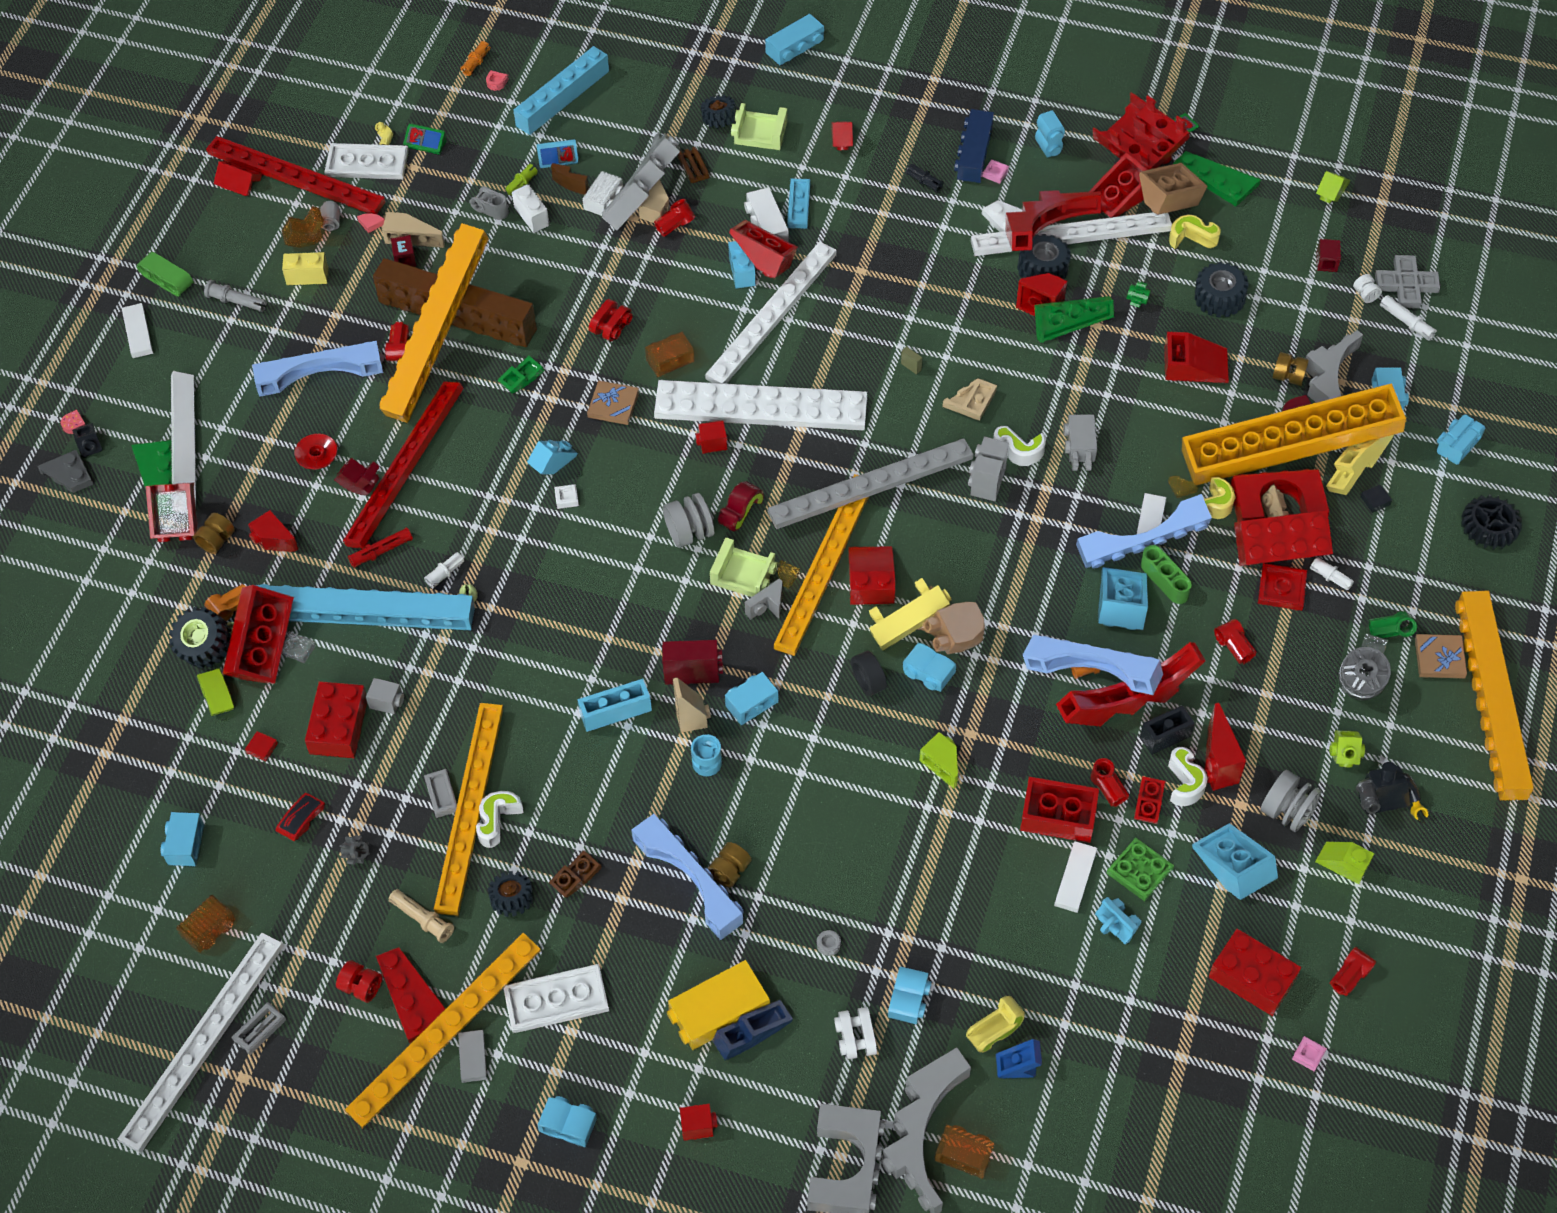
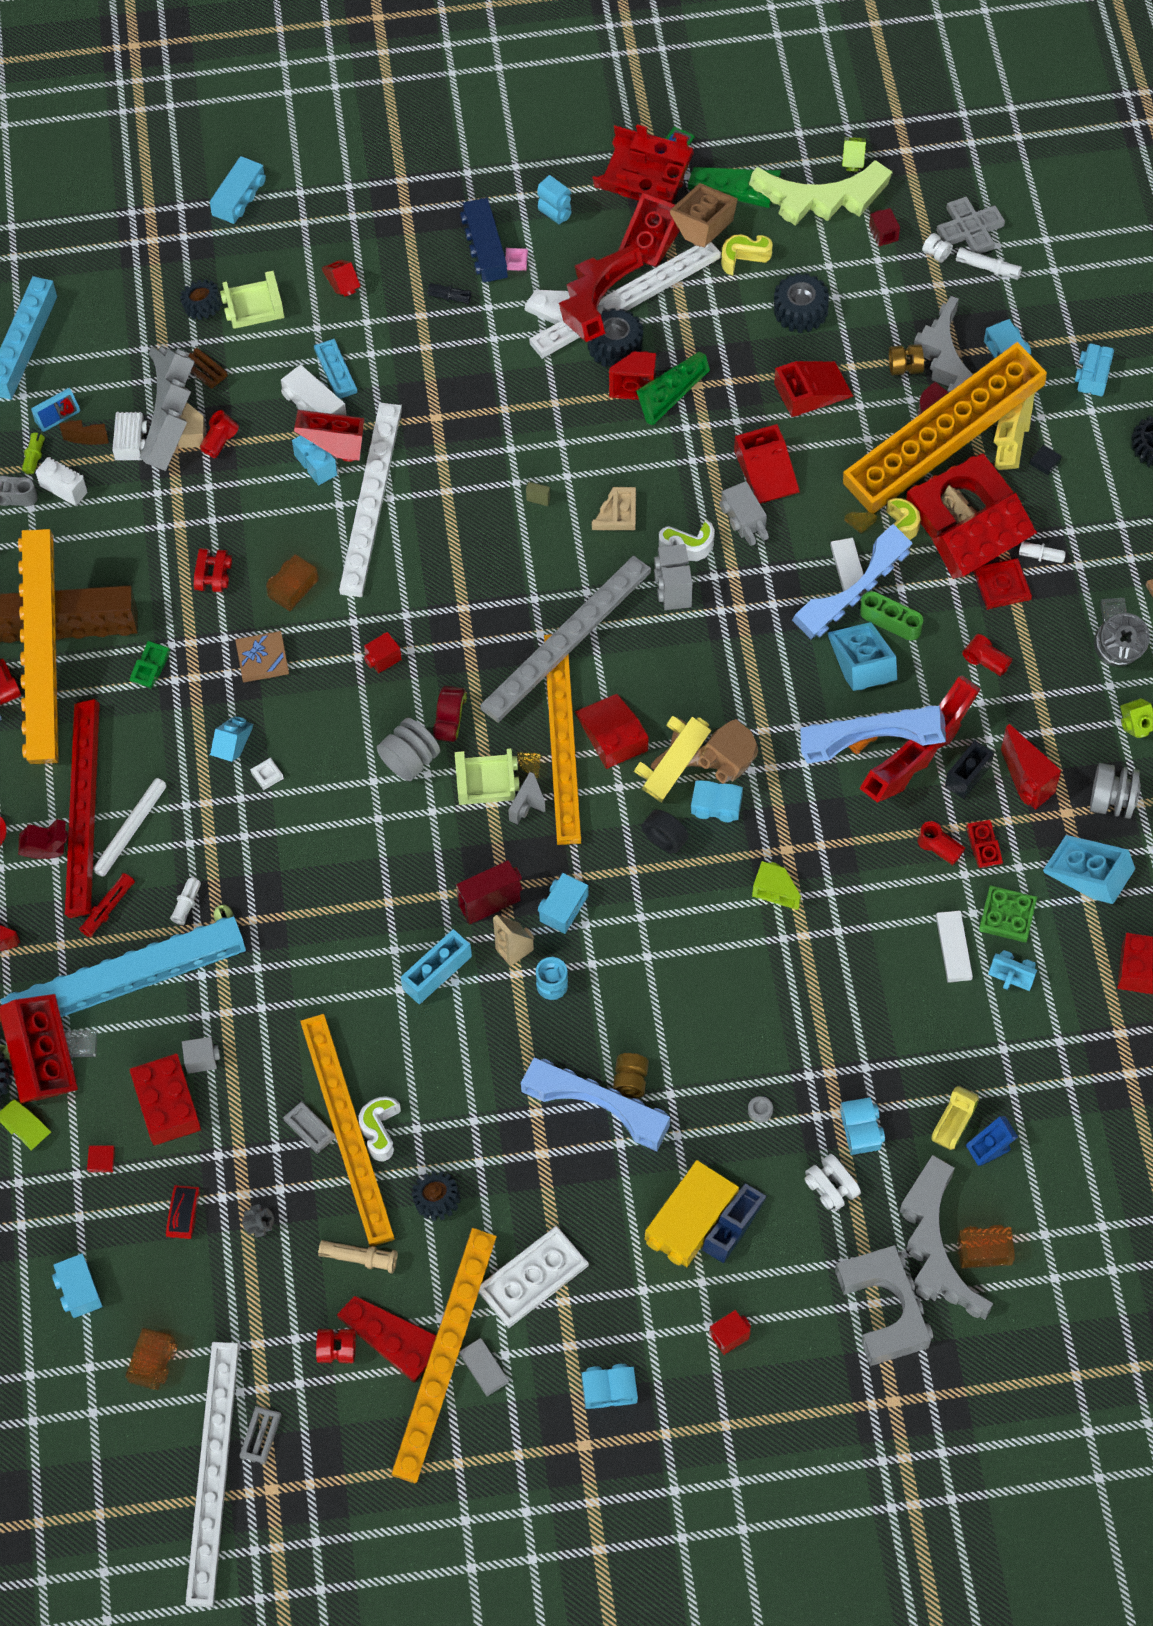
camera: 25 degrees left, 5 degrees up
(433, 494) = (129, 827): none -> white axle
(576, 875) = (486, 1149): reddish brown slope -> none
(761, 405) = (410, 599): white plate -> none
(1059, 809) = (910, 888): red brick -> none
(1120, 408) = (766, 463): none -> red slope
(1138, 294) = (724, 338): green gear -> none
(1190, 774) = (1009, 803): white animal -> none
(1286, 215) = (823, 199): none -> yellowish green arch
(1390, 625) = (1121, 582): green piece -> none

